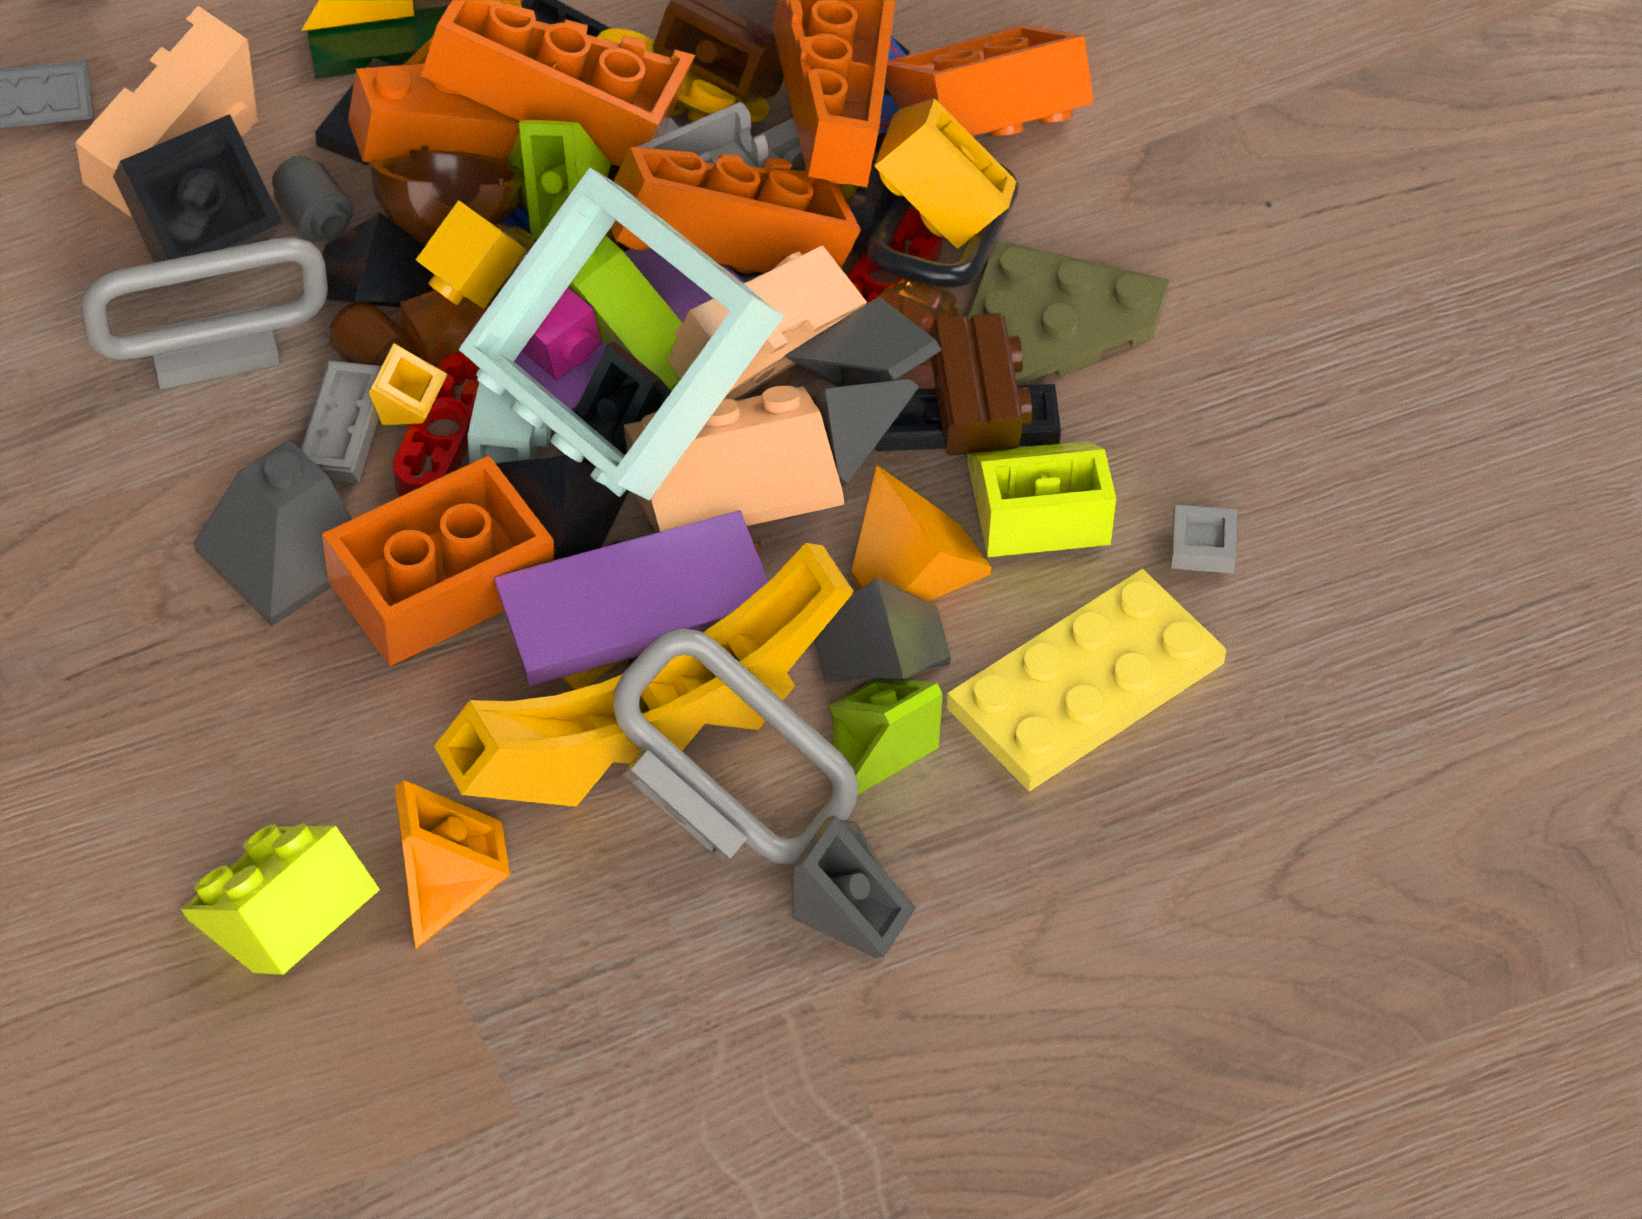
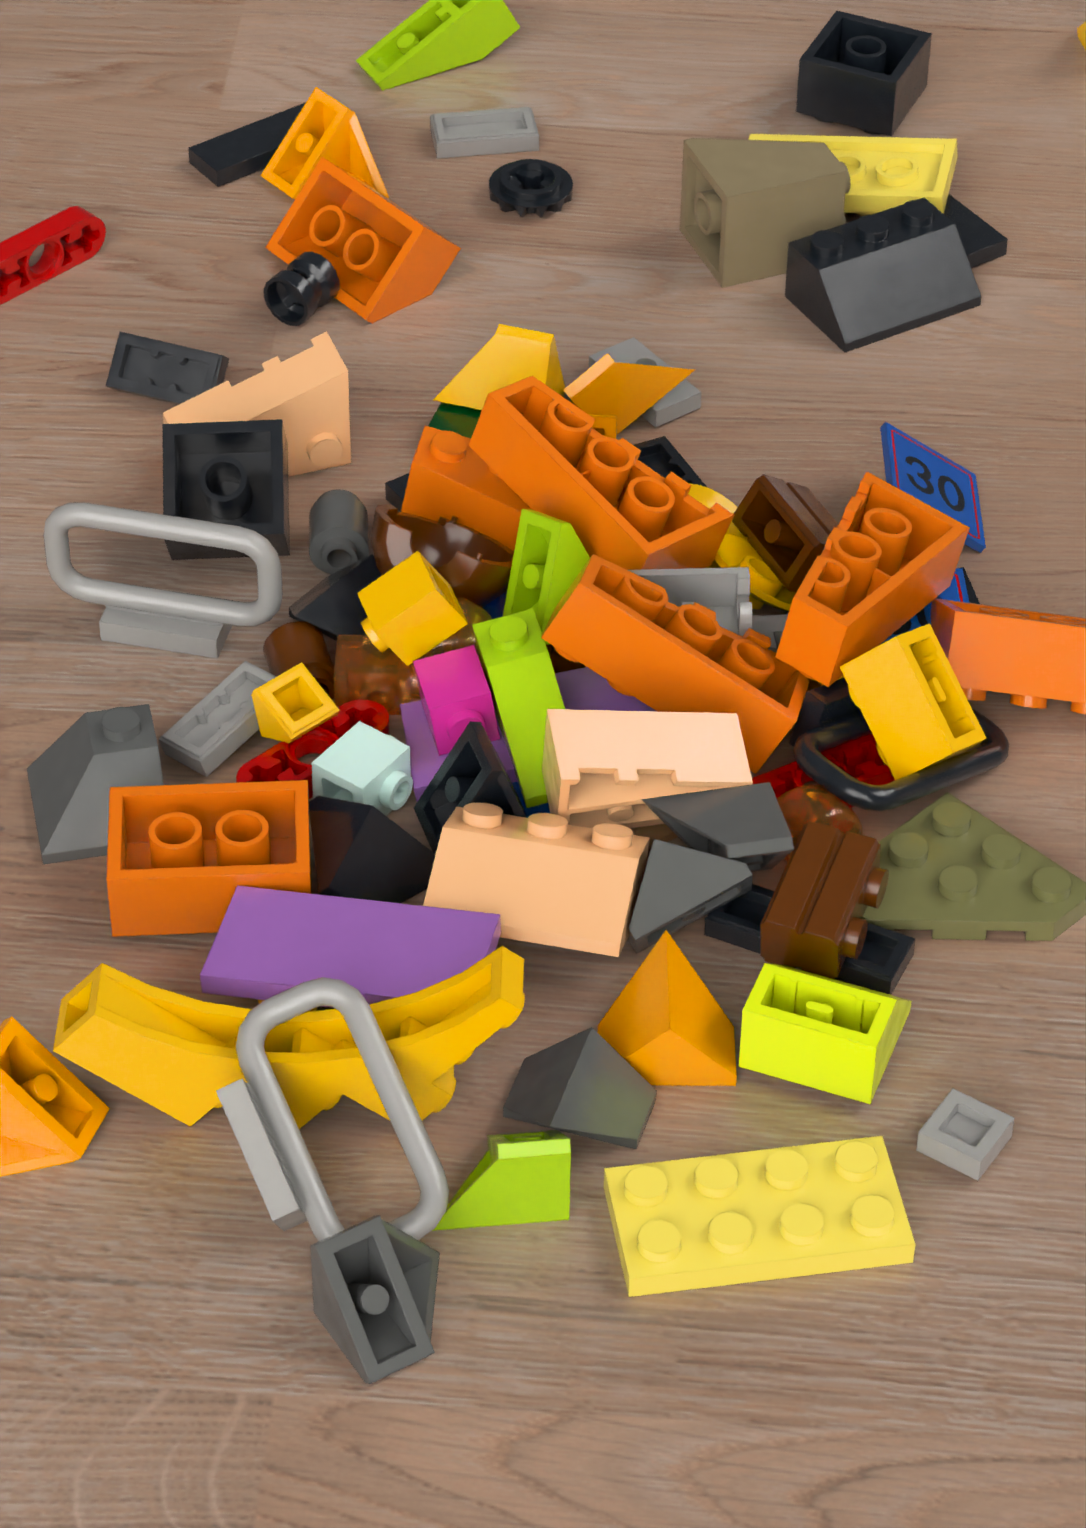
camera: 30 degrees right, 10 degrees down
(543, 280) = (431, 652): light aqua window -> none

